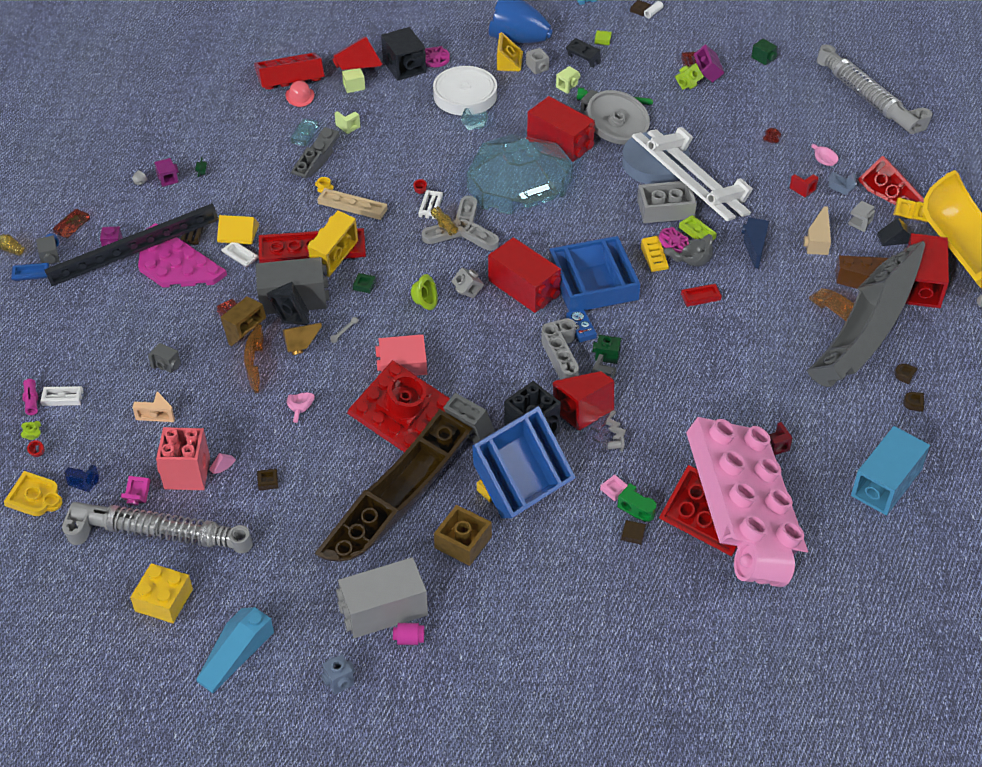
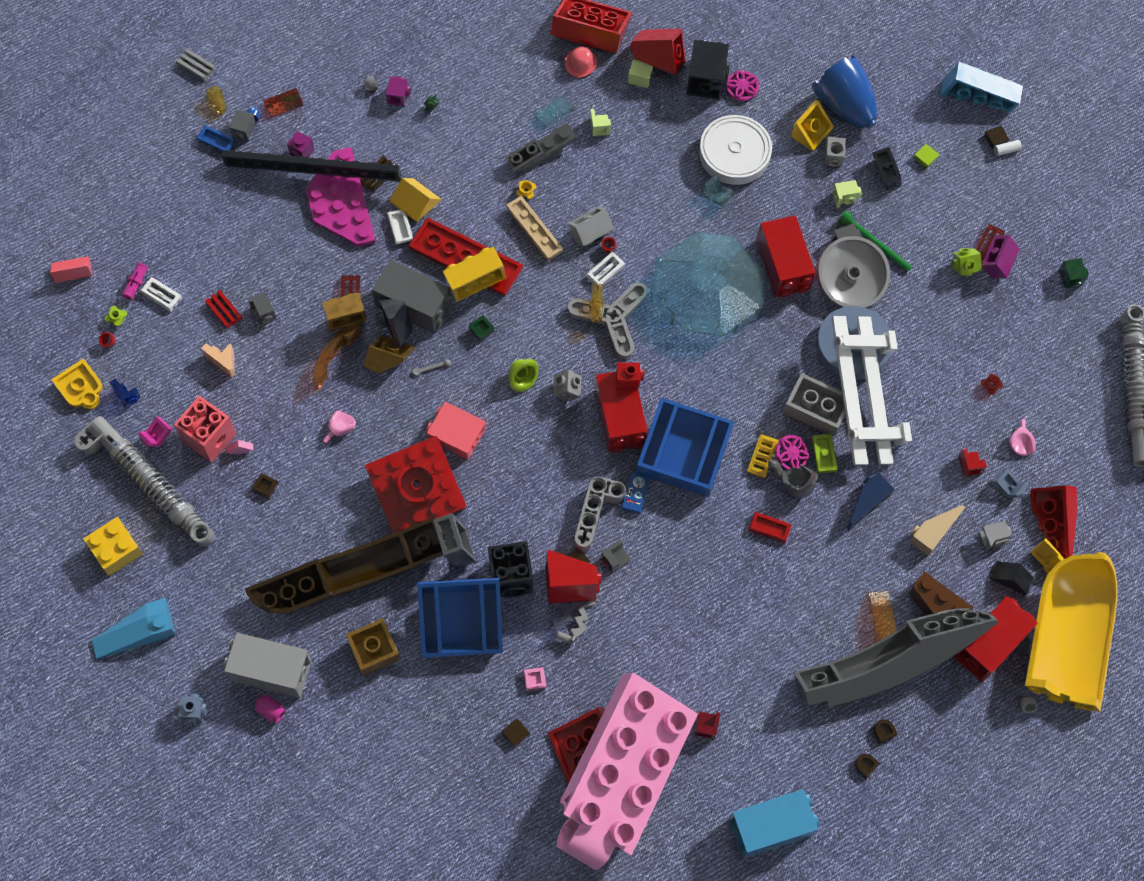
camera: 30 degrees right, 20 degrees up
(130, 376) = (215, 298): none -> red tile
(397, 180) = (591, 226): none -> light grey brick
(515, 238) = (629, 375): none -> red brick
(608, 347) = (636, 535): dark green brick -> none
(636, 504) = (538, 714): green leg -> none

